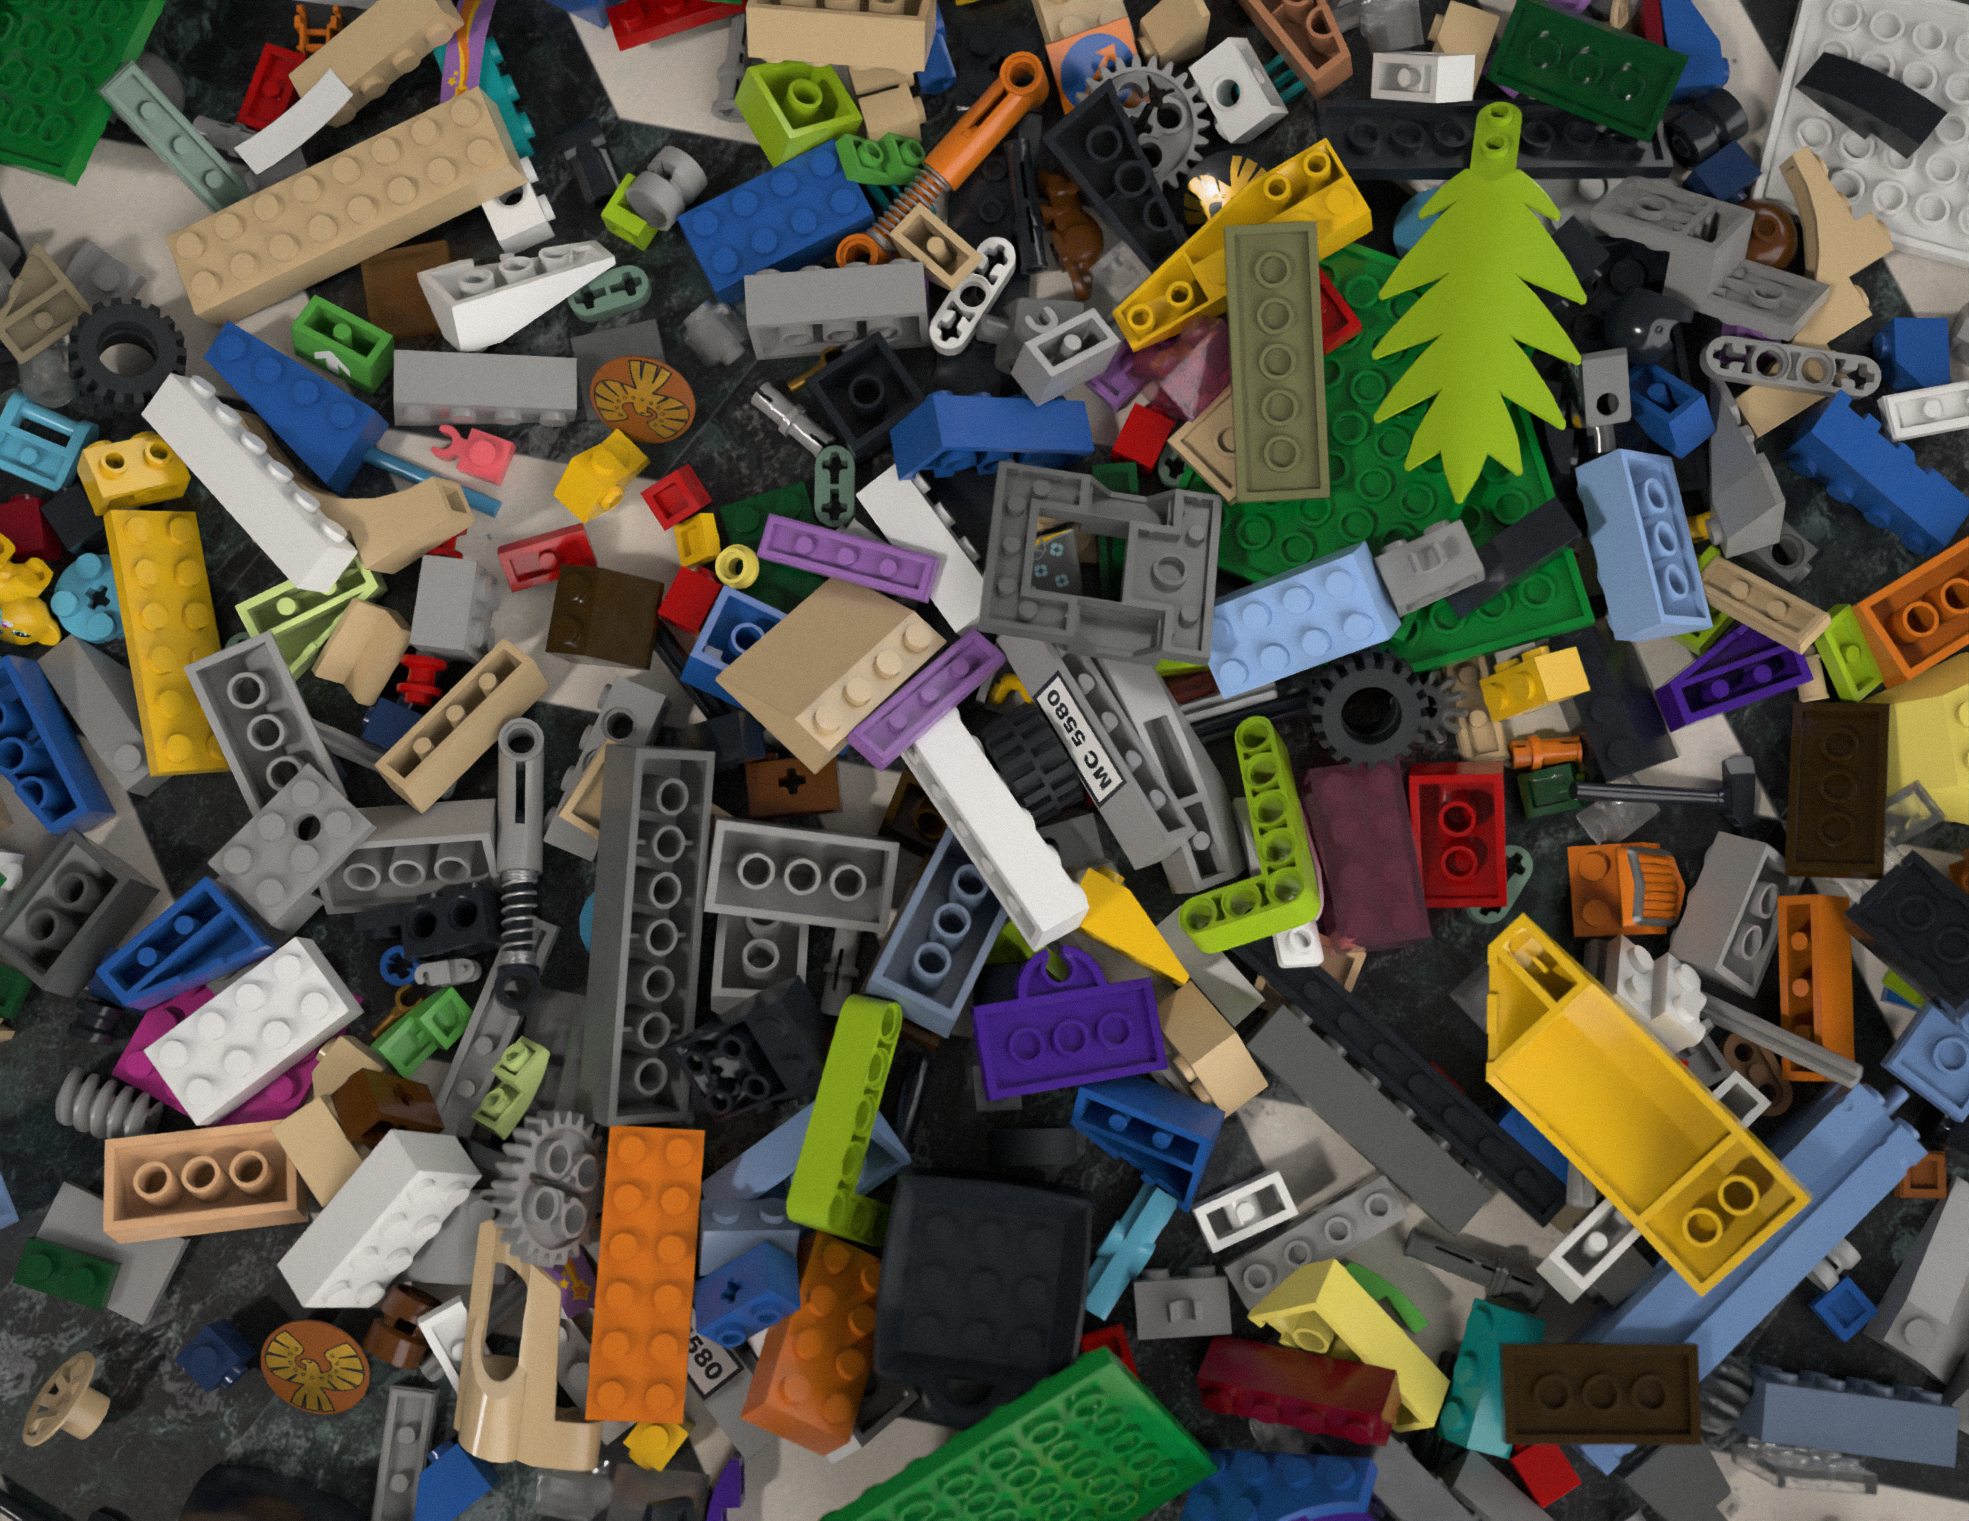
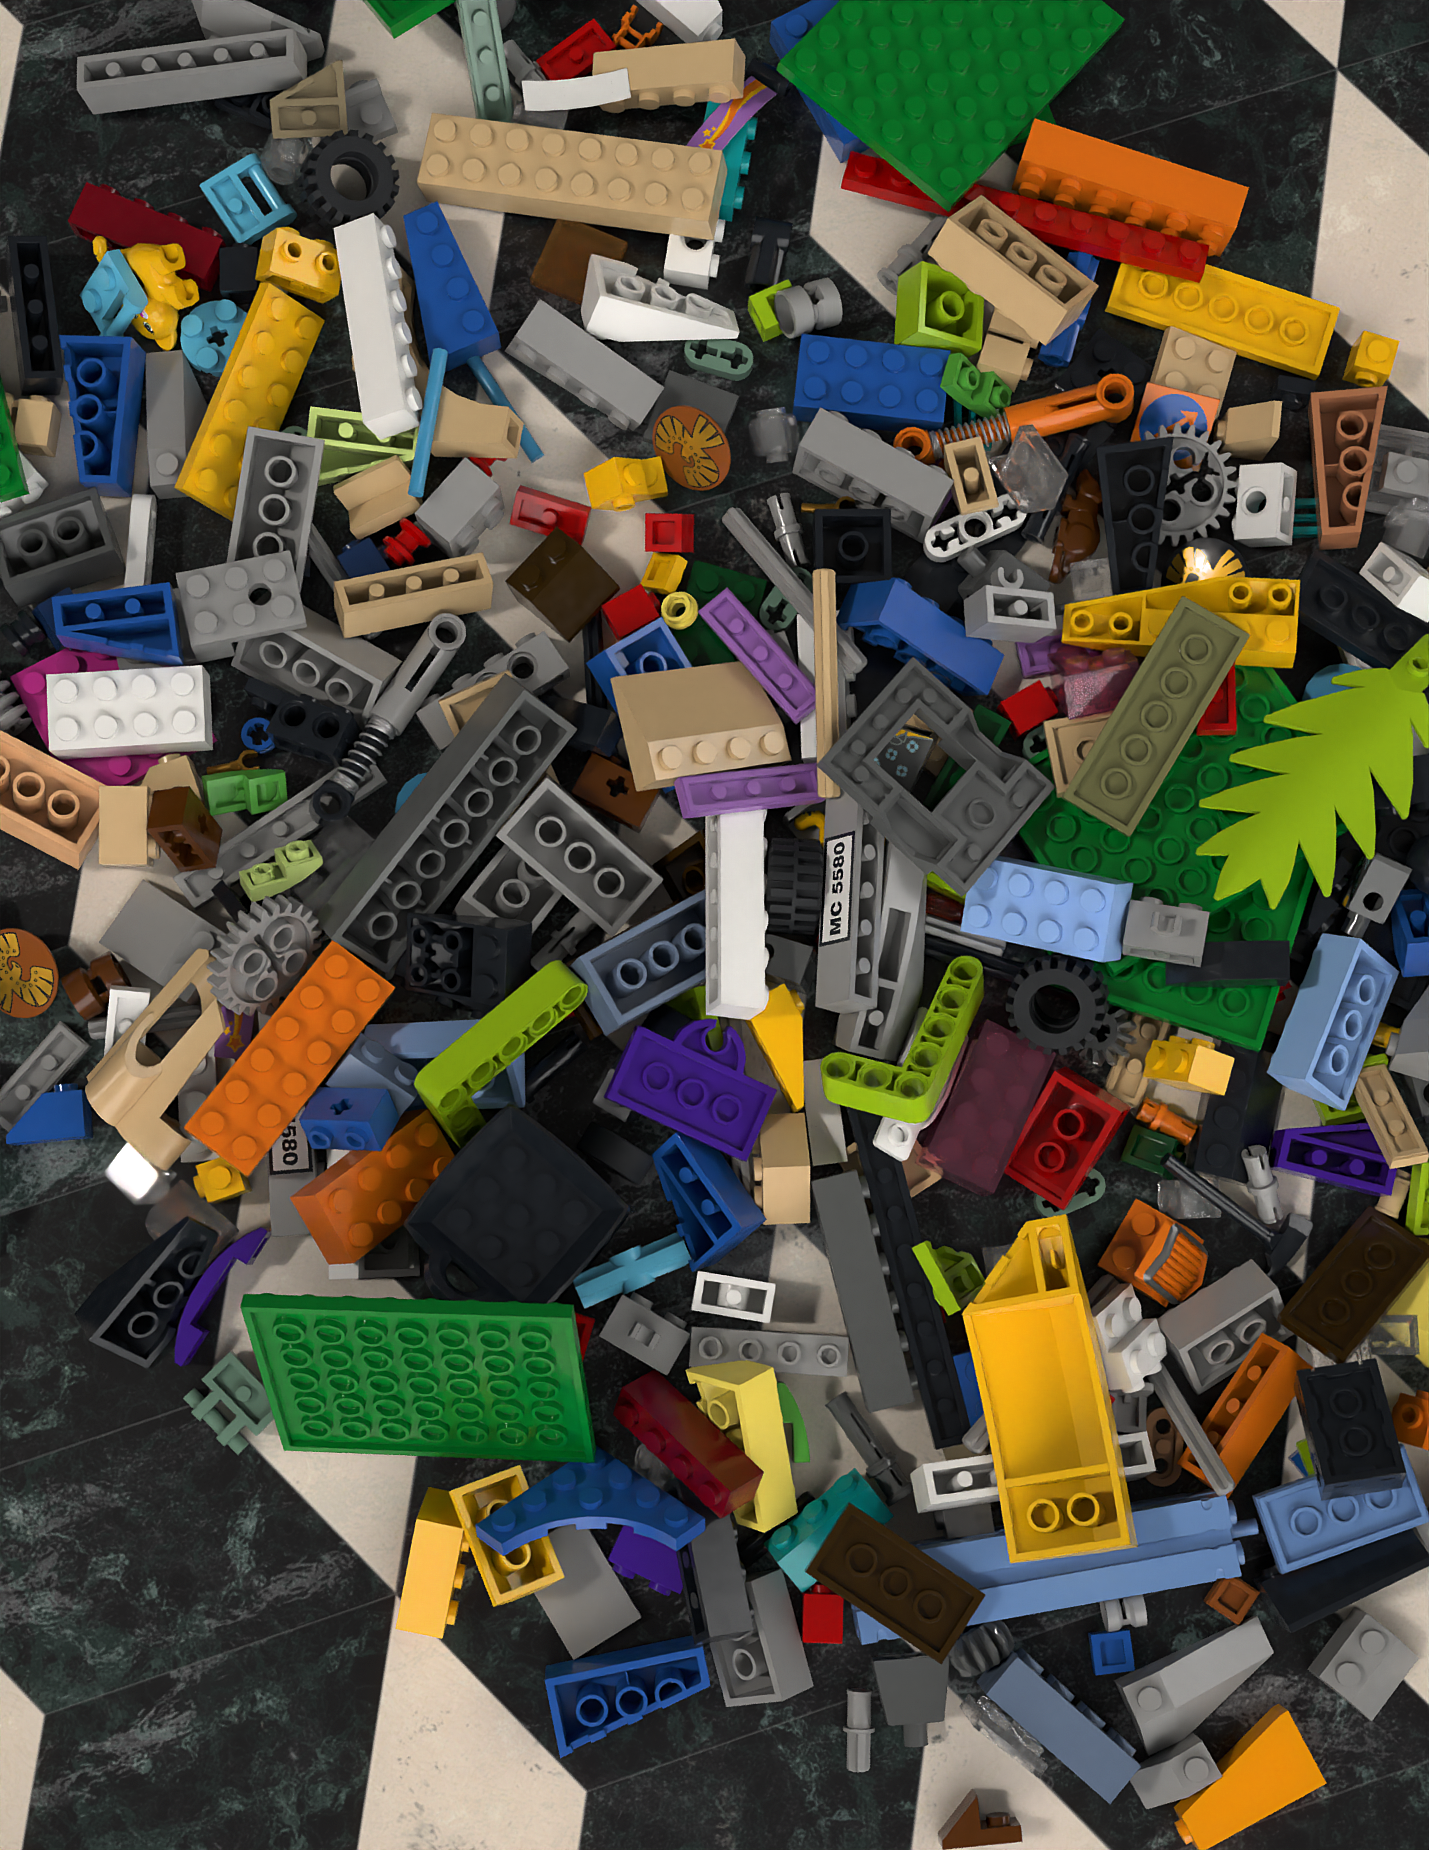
camera: 20 degrees right, 0 degrees up
(154, 850) = (141, 540): none -> white beam
(343, 344) = (506, 270): bright green brick -> none
(362, 545) = (428, 422): none -> dark azure bar
(379, 1220) = (131, 899): white brick -> none
(448, 972) = (289, 761): light grey piece -> none
(479, 455) = (550, 412): coral plate -> none
(838, 473) = (788, 583): none -> light grey axle
(925, 534) = (825, 673): none -> tan axle
(991, 205) = (1030, 472): none -> clear bracket
(1443, 1044) = (952, 1275): none -> lime wing
(1680, 751) = (1262, 1184): none -> light grey pin

